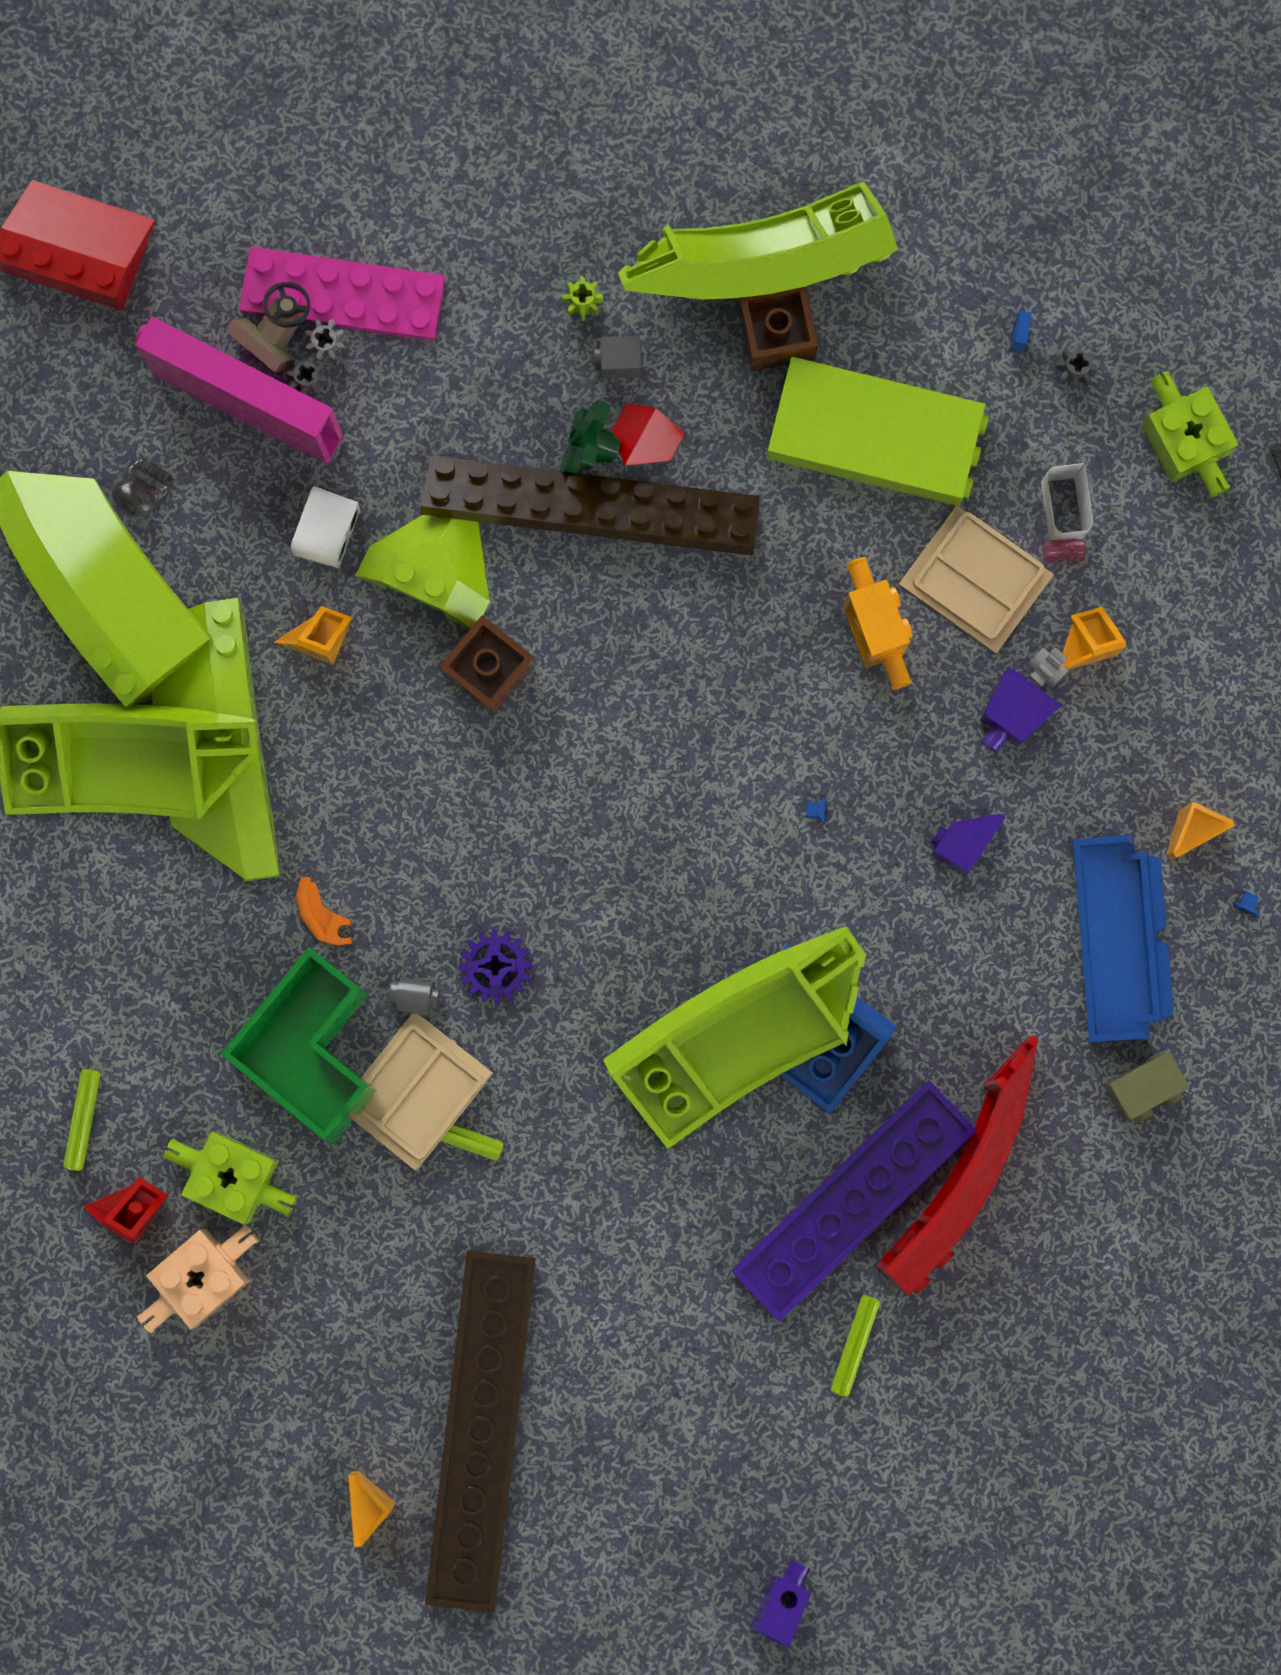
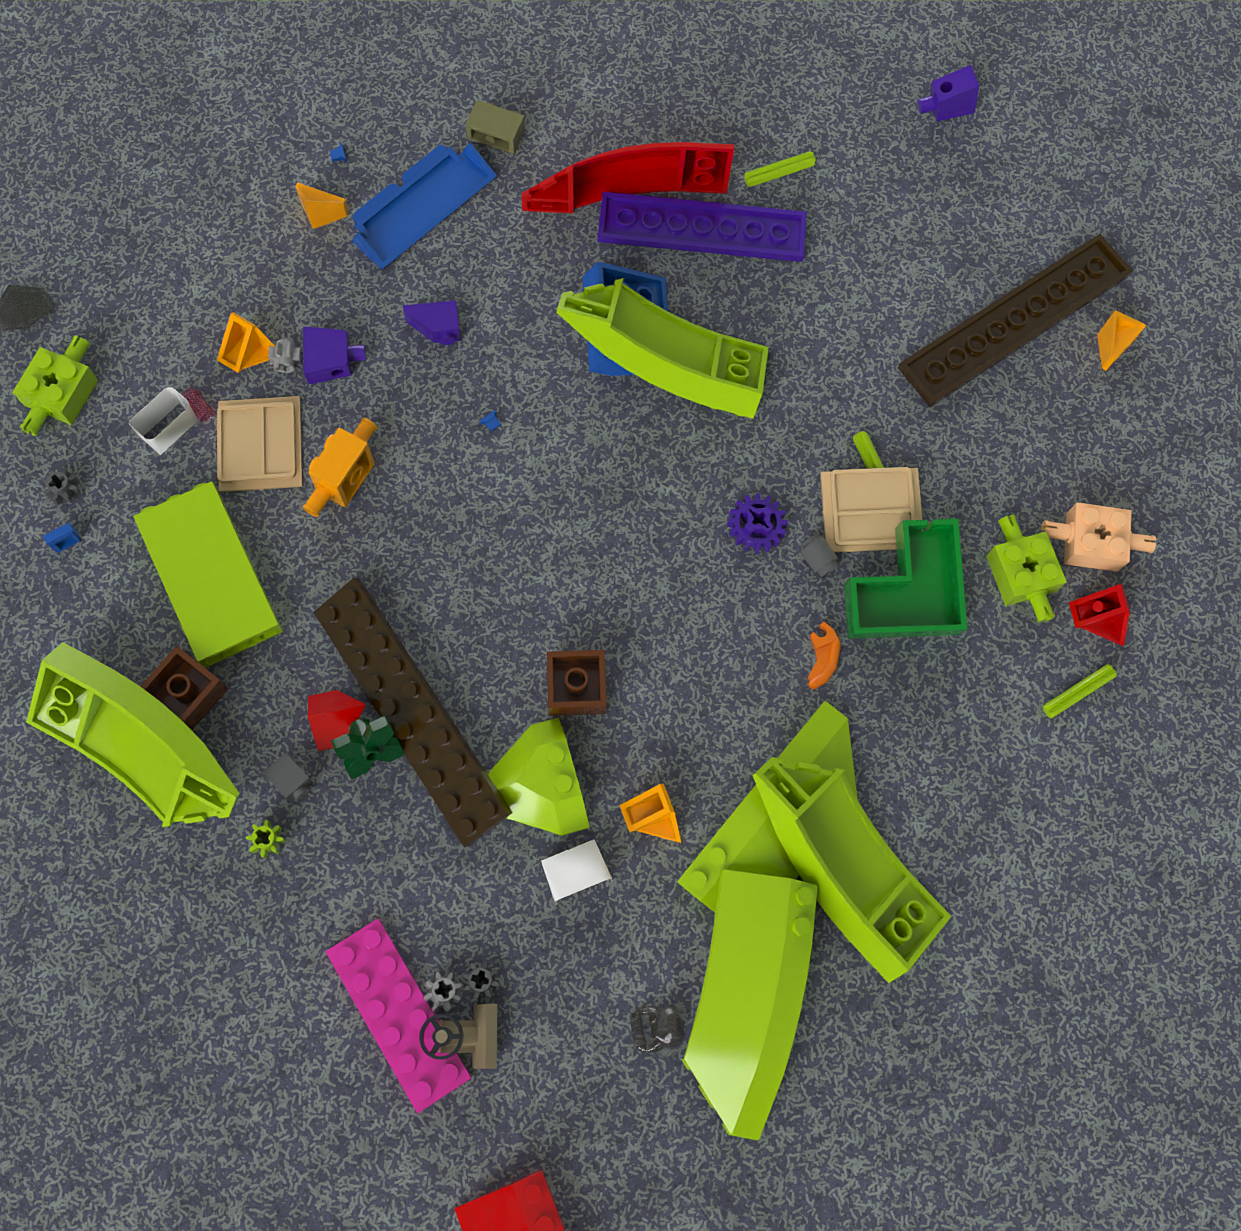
camera: 135 degrees left, 10 degrees down
(239, 390) = (533, 1010): dark pink brick -> none

